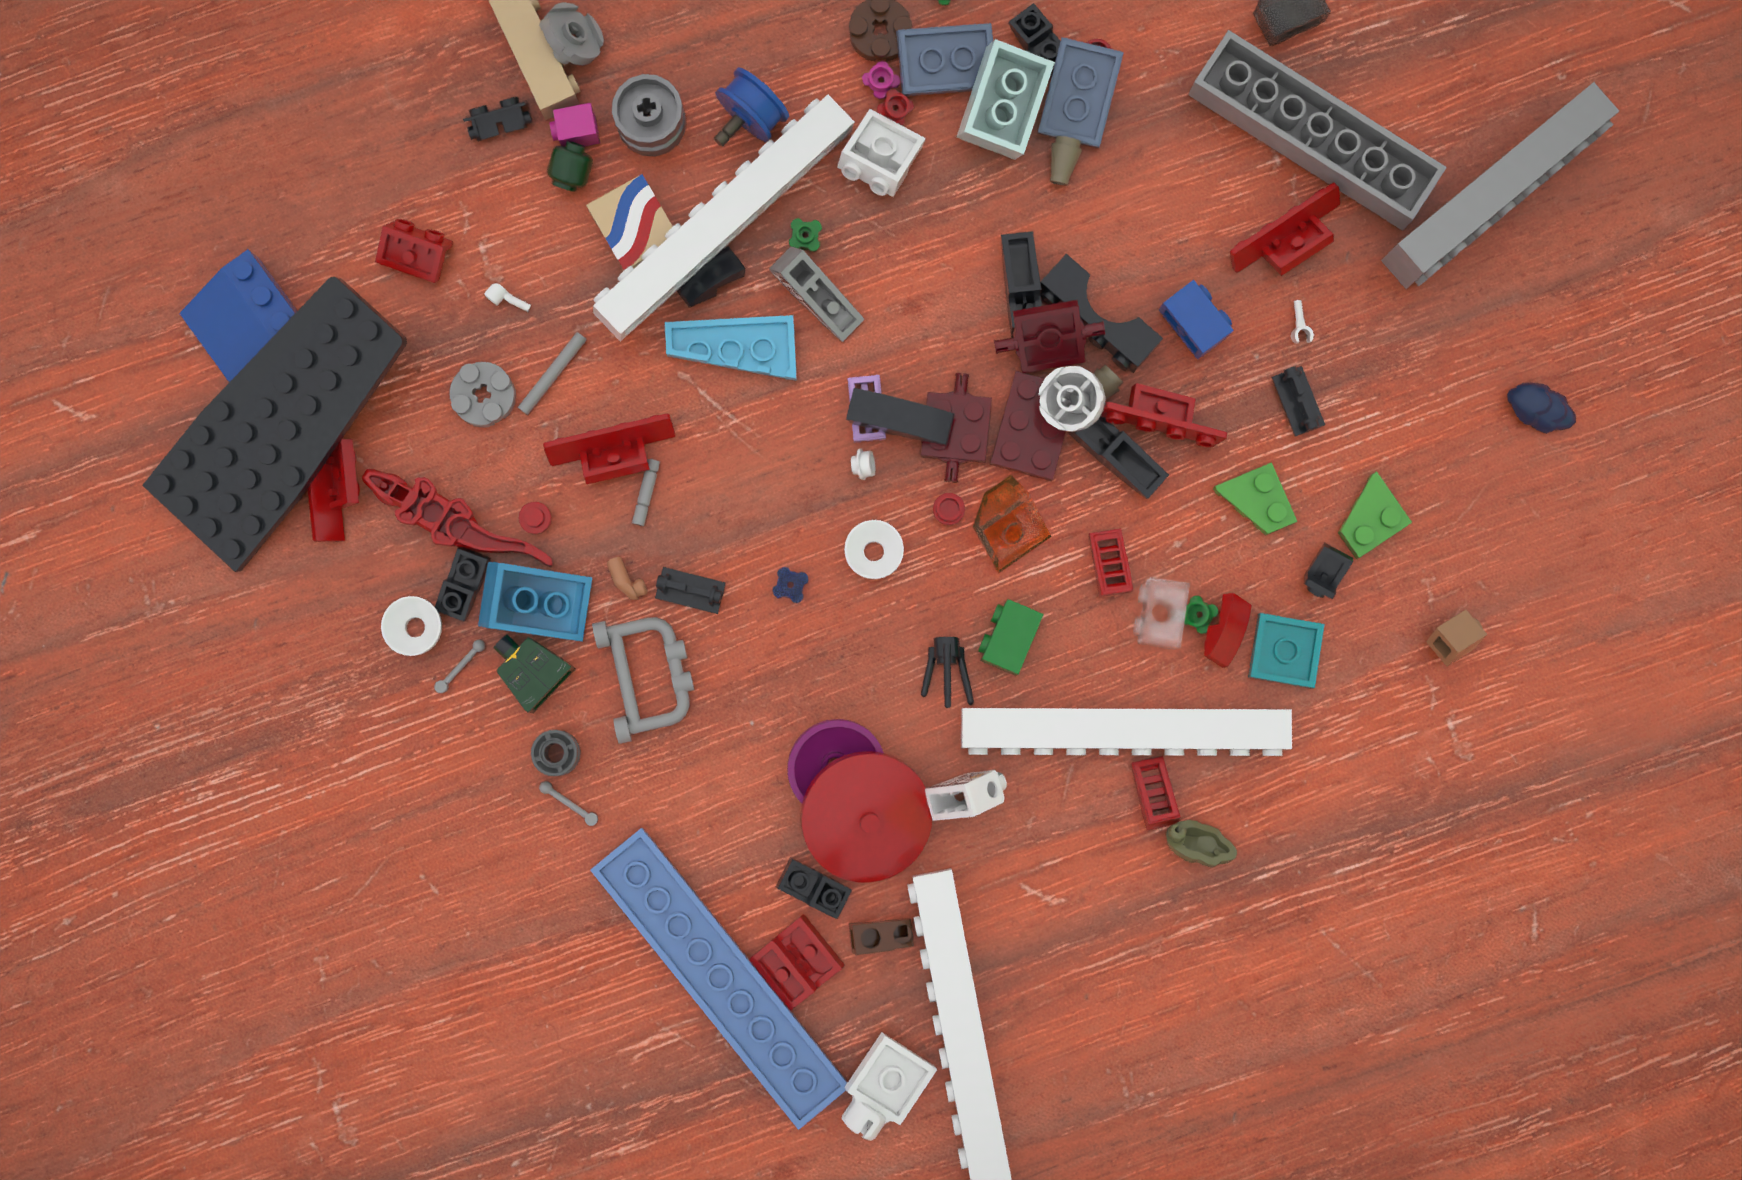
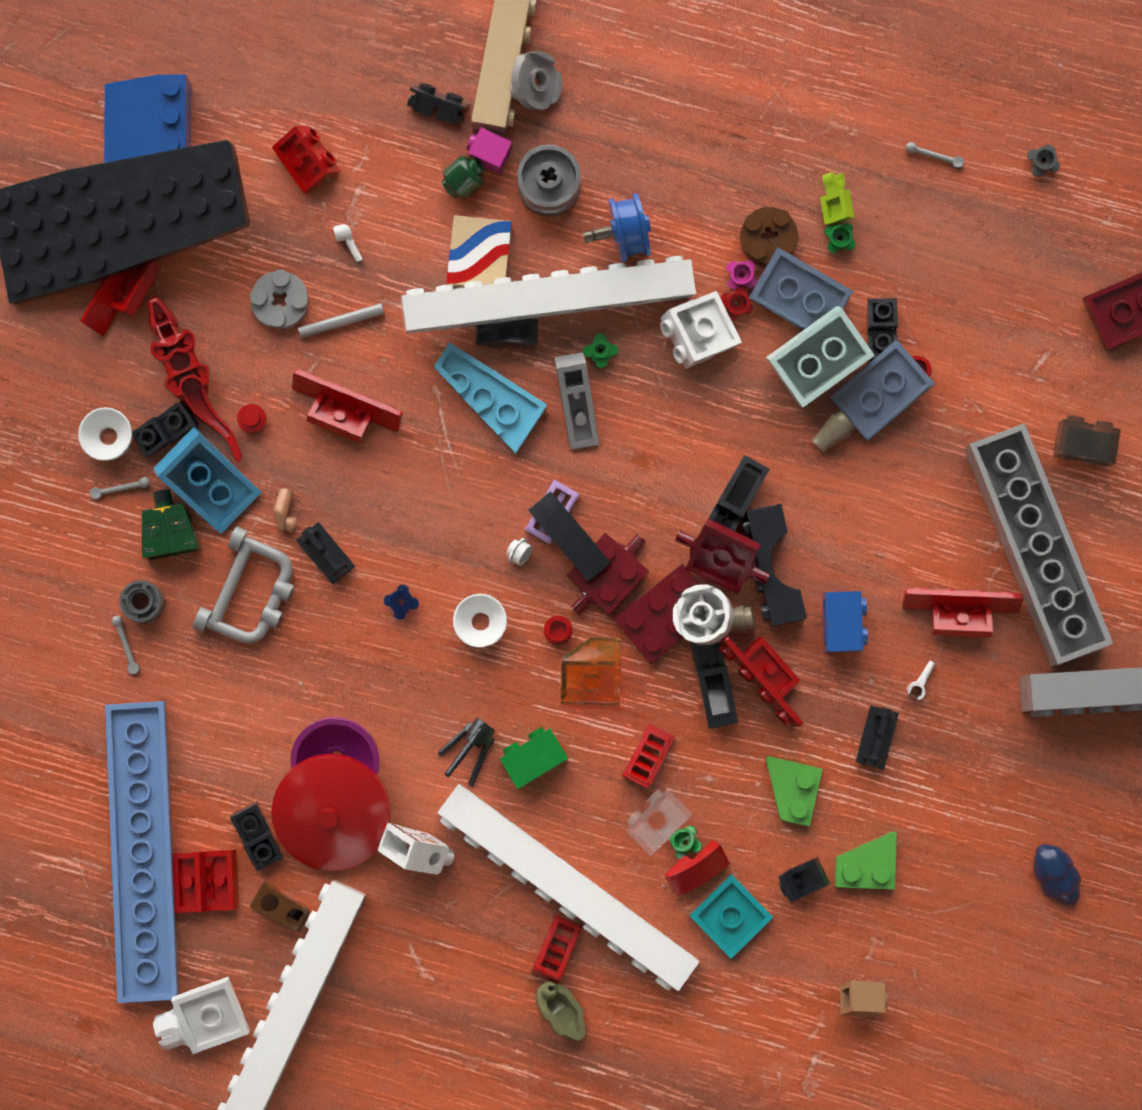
camera: 40 degrees right, 0 degrees up
(646, 493) = (346, 457): light grey wheel -> none

